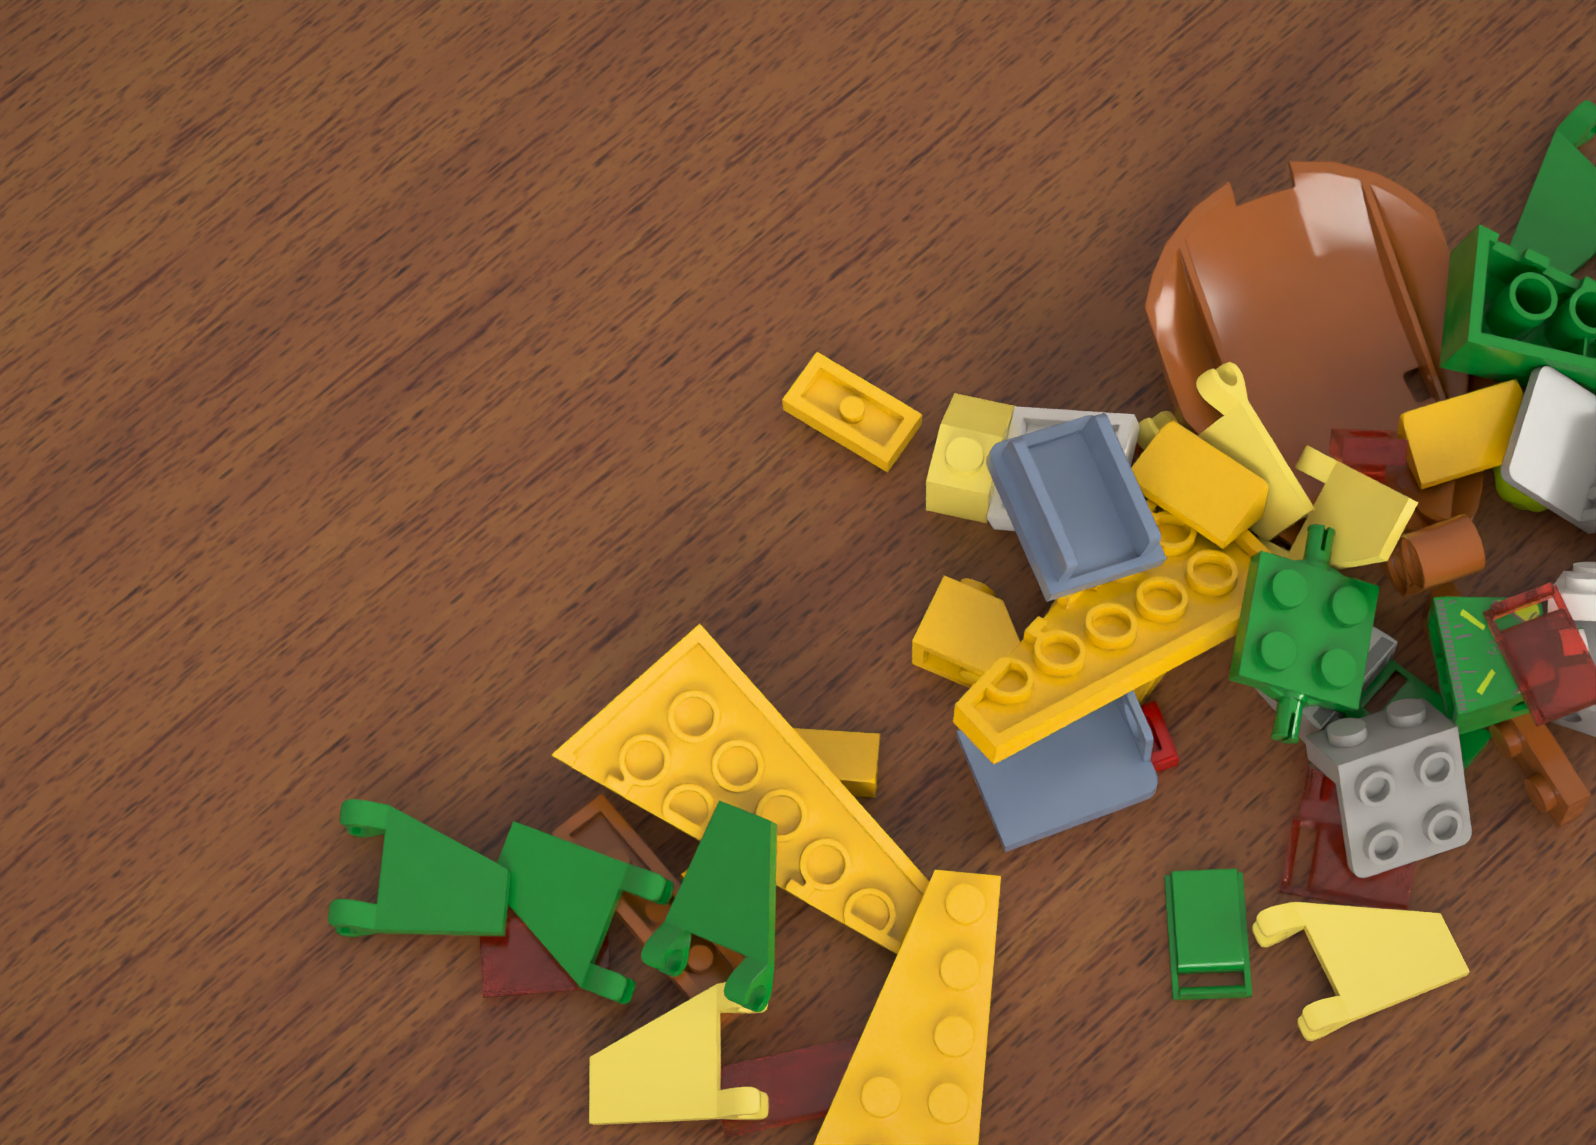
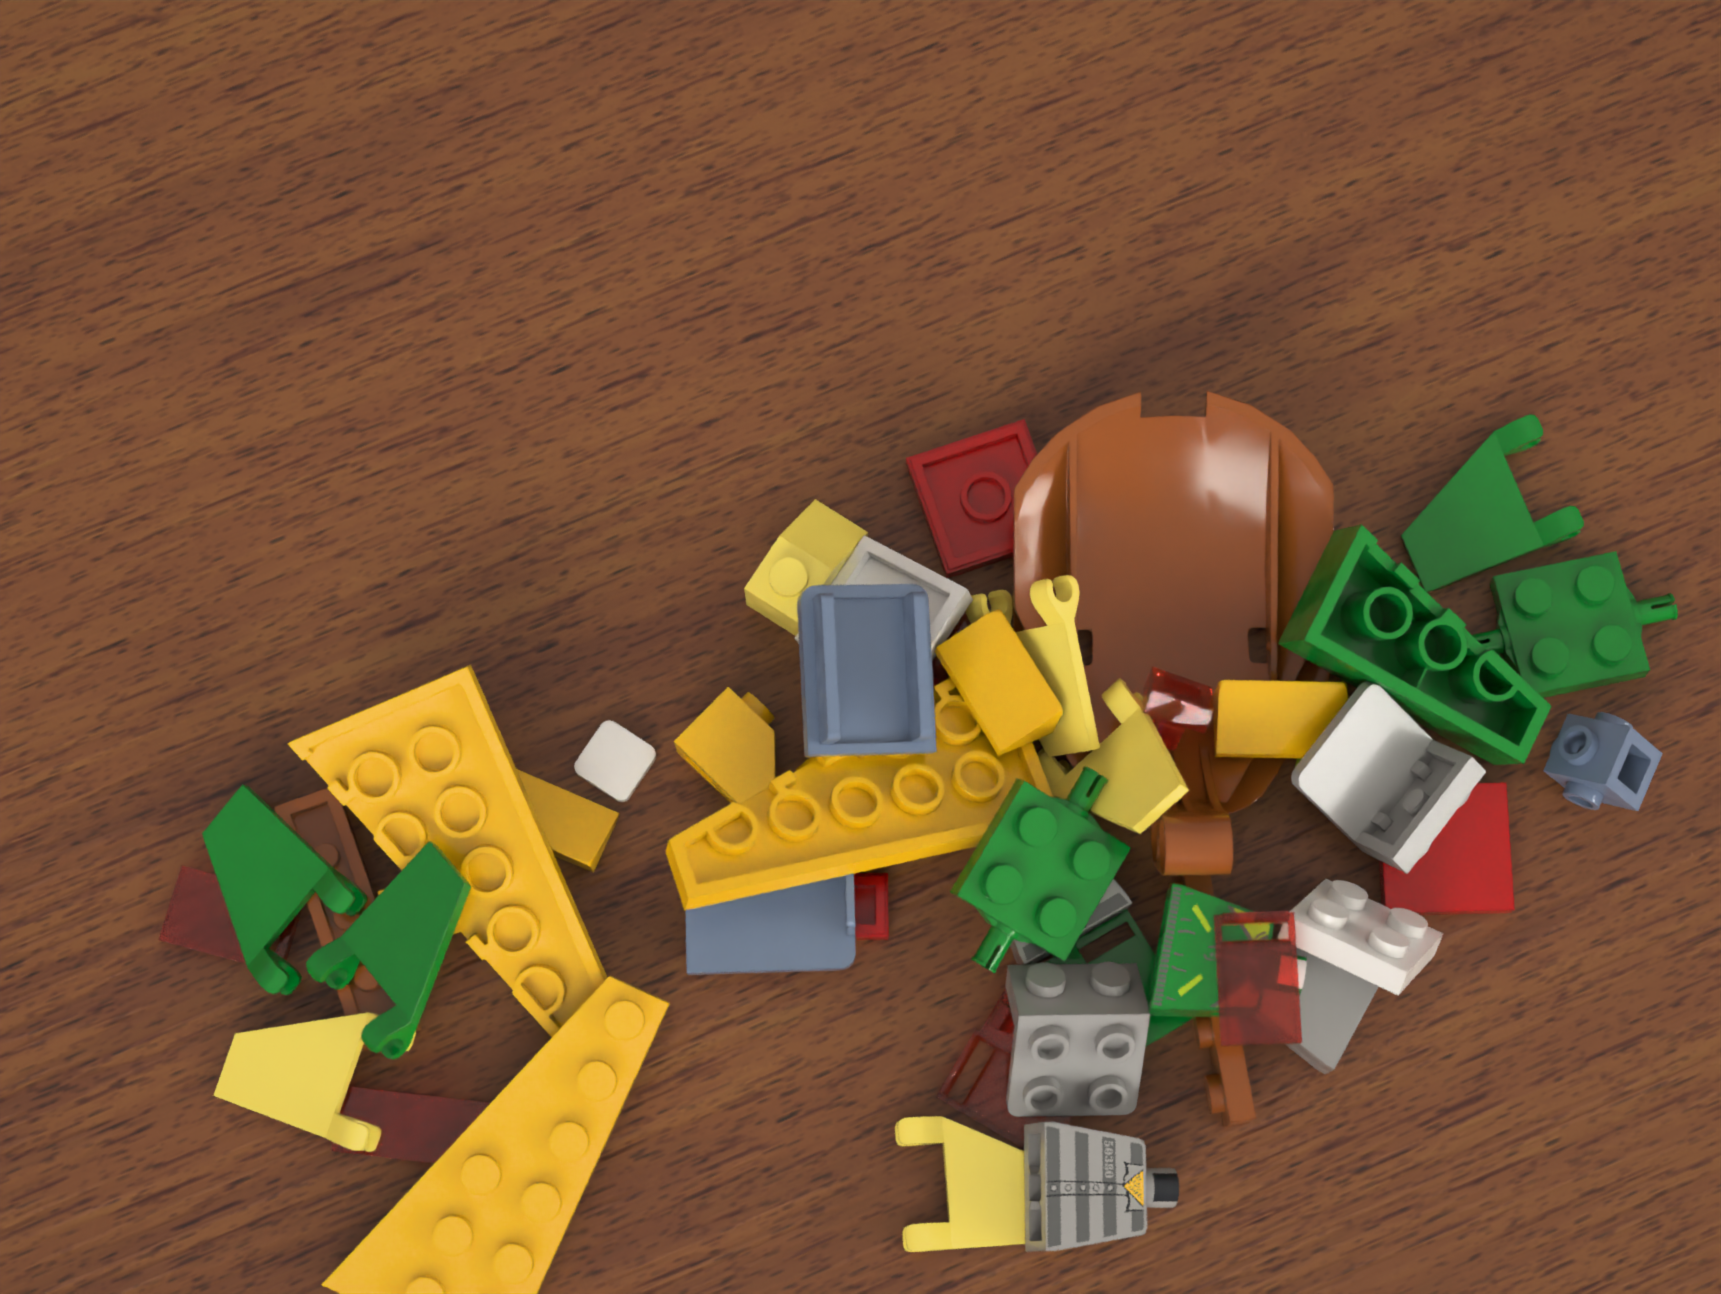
camera: 15 degrees right, 10 degrees up
(424, 881) = (144, 811): green flag -> none
(852, 412) = (709, 486): yellow plate -> none
(857, 689) = (615, 761): none -> white piece
(1102, 341) = (970, 495): none -> red tile
(1207, 930) = (853, 1111): green piece -> none
(1456, 913) = (1088, 1186): none -> light grey torso

